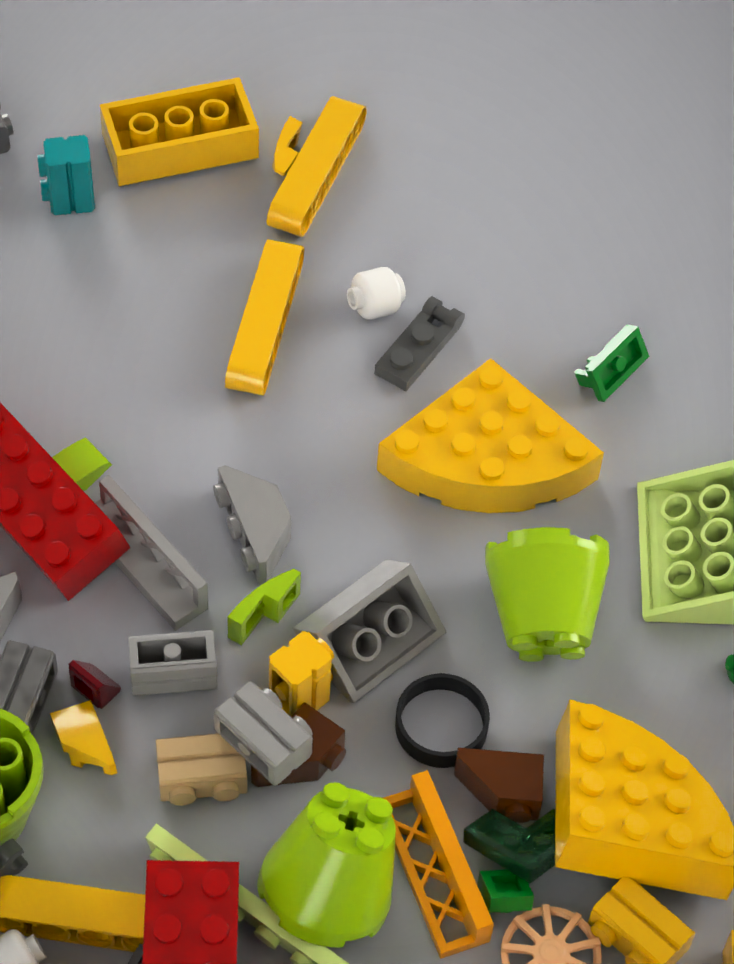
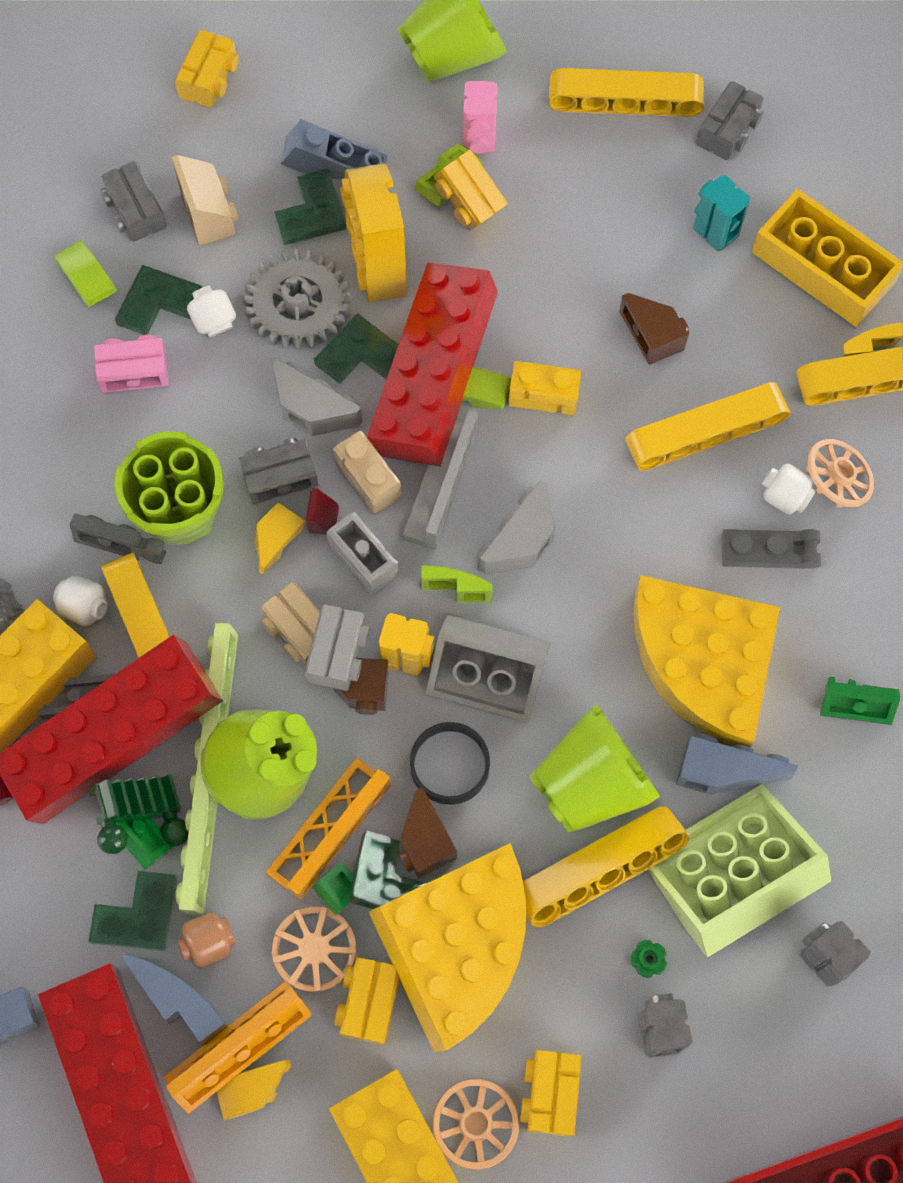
camera: 60 degrees right, 15 degrees up
(85, 611) = (367, 472): none -> tan brick
(122, 414) = (544, 388): none -> yellow brick
(130, 297) = (654, 327): none -> reddish brown slope
(391, 245) = (839, 472): none -> light nougat wheel
(602, 500) = (723, 768): none -> sand blue slope
(636, 643) = (603, 865): none -> yellow beam

